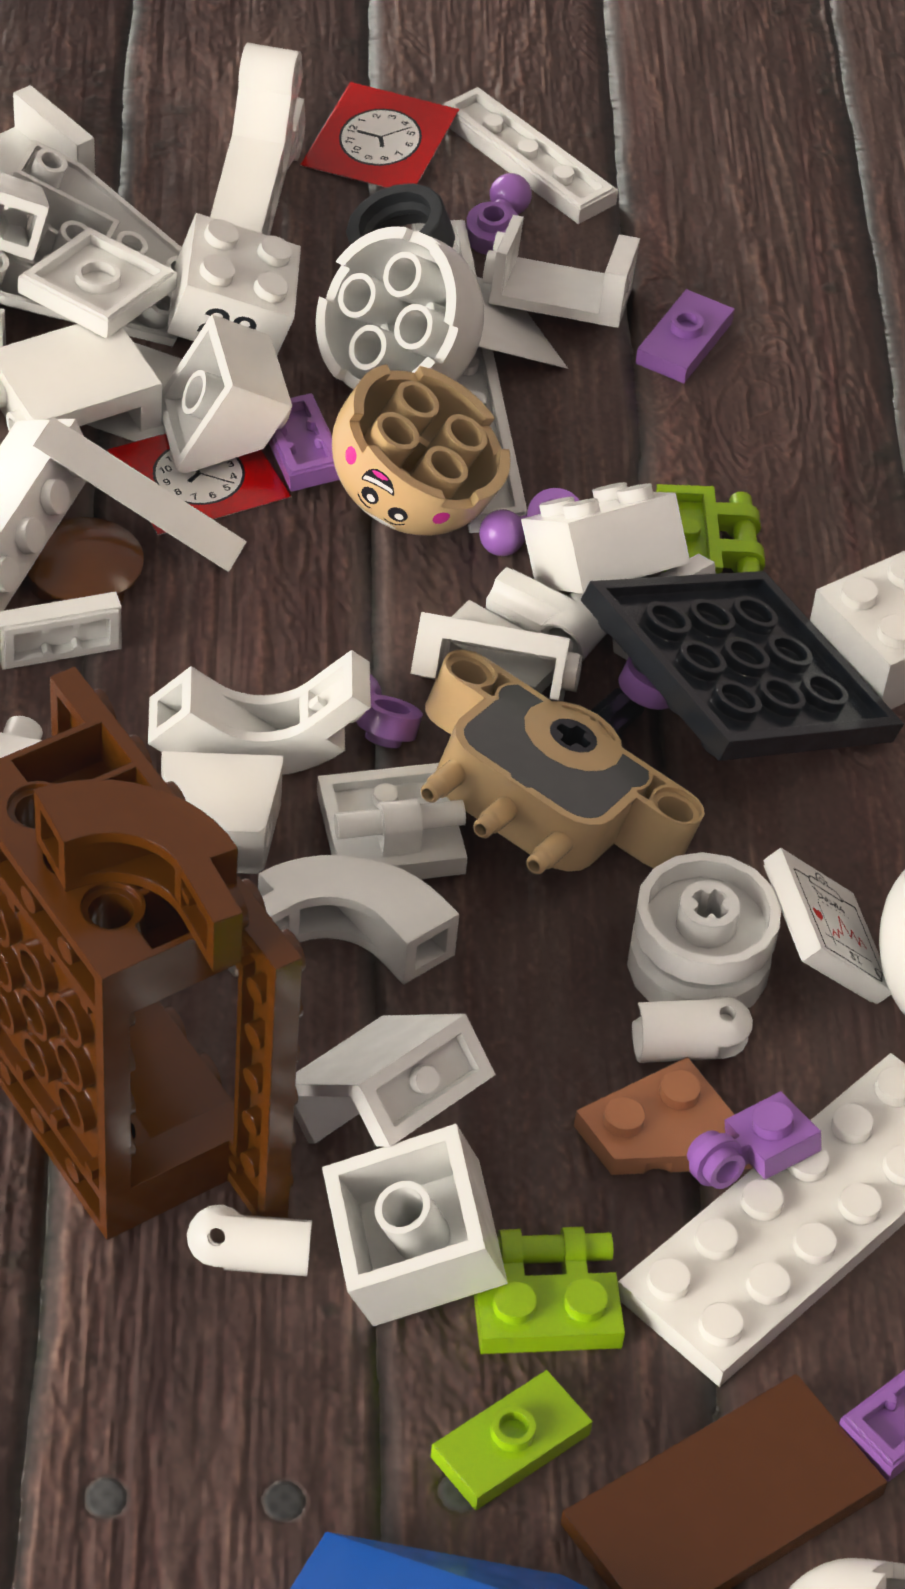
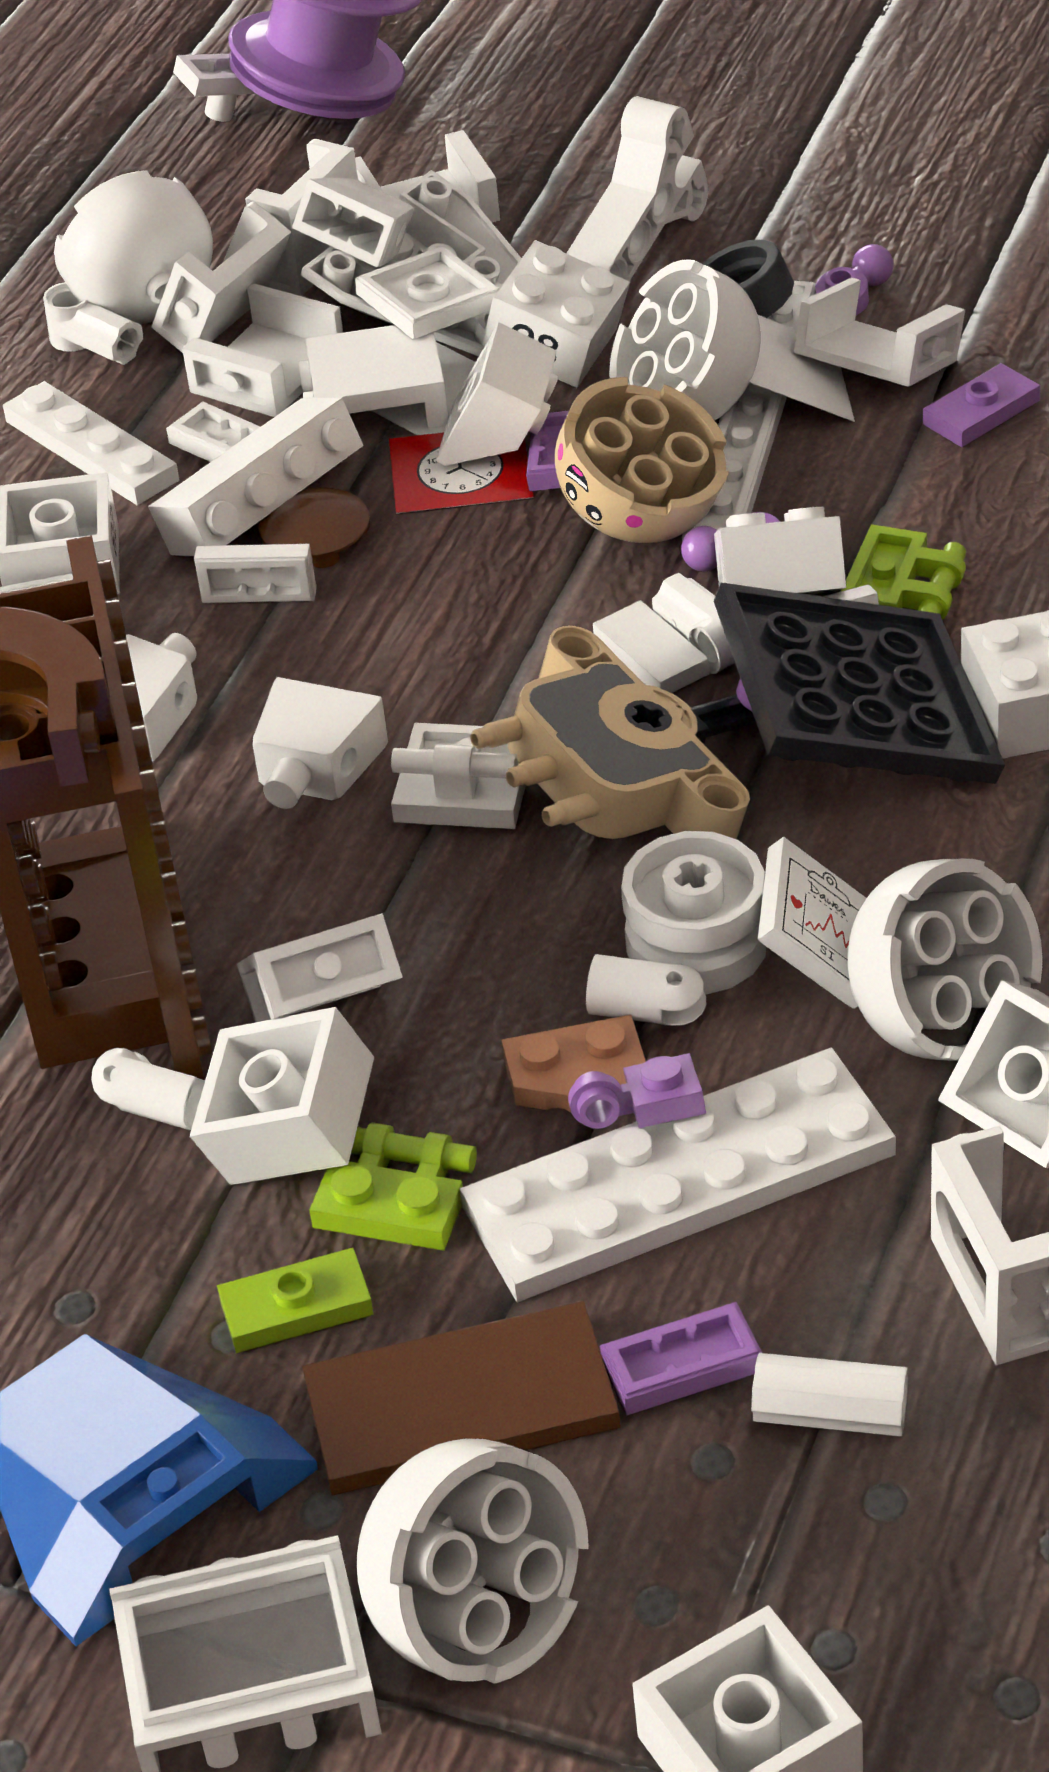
camera: 30 degrees right, 5 degrees down
(139, 493) = (380, 471): white sticker -> none
(298, 724) = (409, 679): white arch -> none
(363, 904) = (372, 827): white arch -> none
(379, 137) = (778, 205): red sticker -> none
(389, 719) = (501, 677): medium lavender plate -> none
(439, 631) = (674, 659): white panel -> none
(530, 154) = (914, 235): white tile -> none

